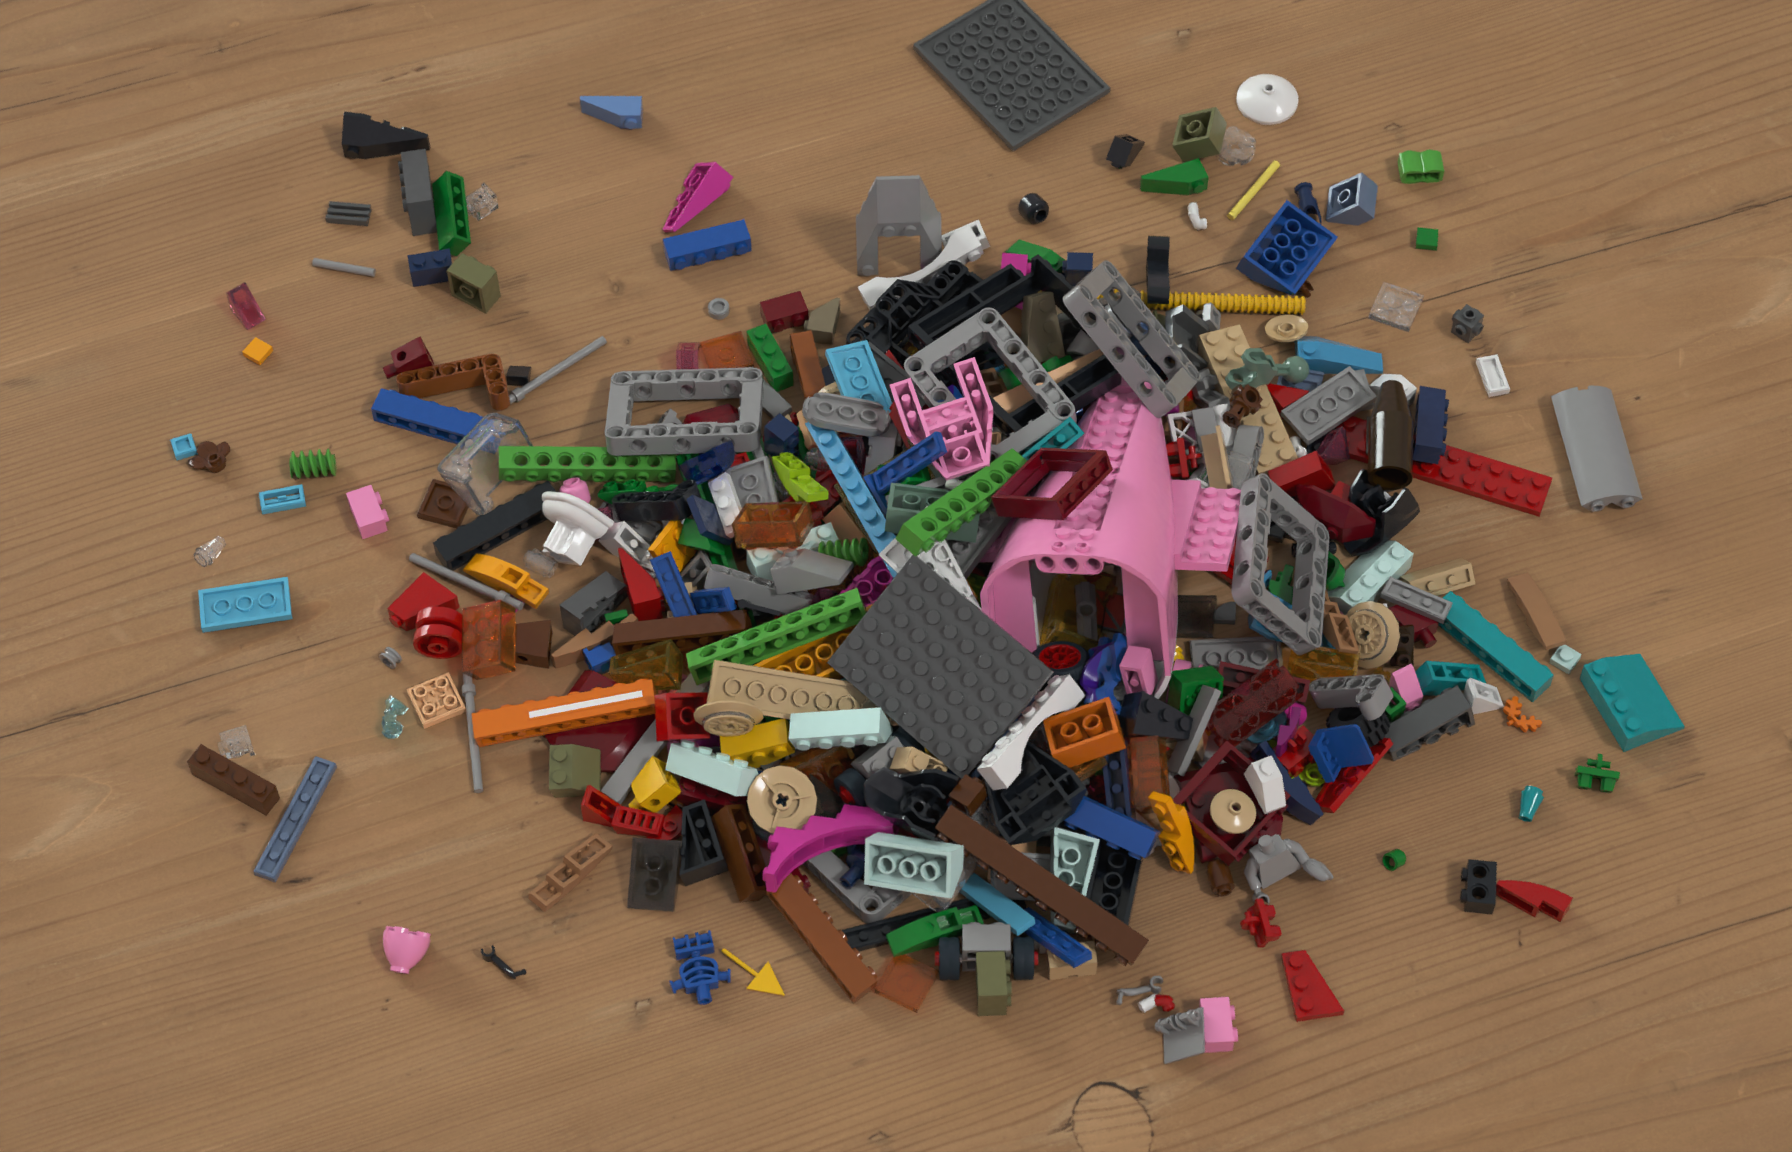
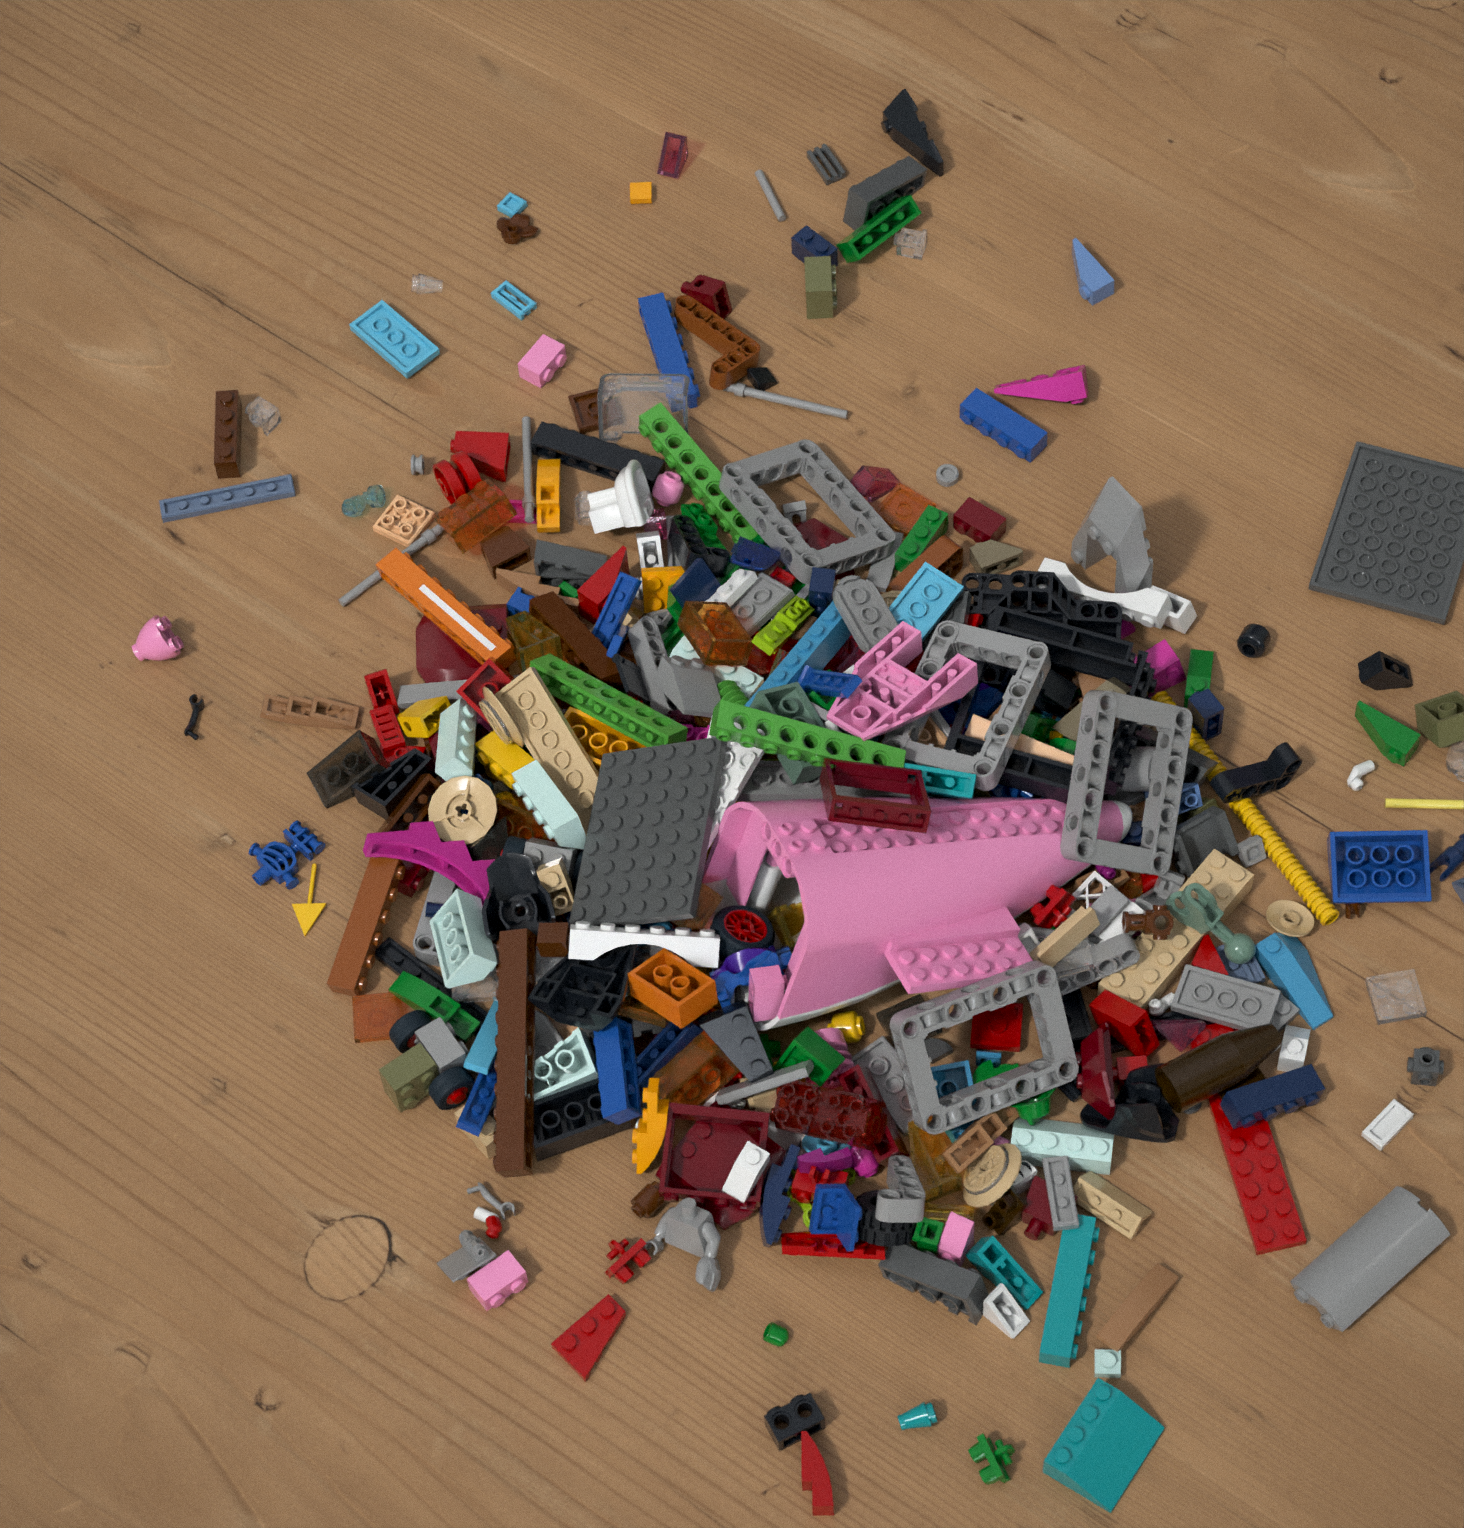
camera: 60 degrees right, 0 degrees up
(312, 464) = (558, 296): bright green piece -> none
(573, 769) = (400, 653): olive slope -> none
(1229, 819) = (709, 1172): tan dish -> none
(1512, 709) = (1011, 1349): orange animal -> none

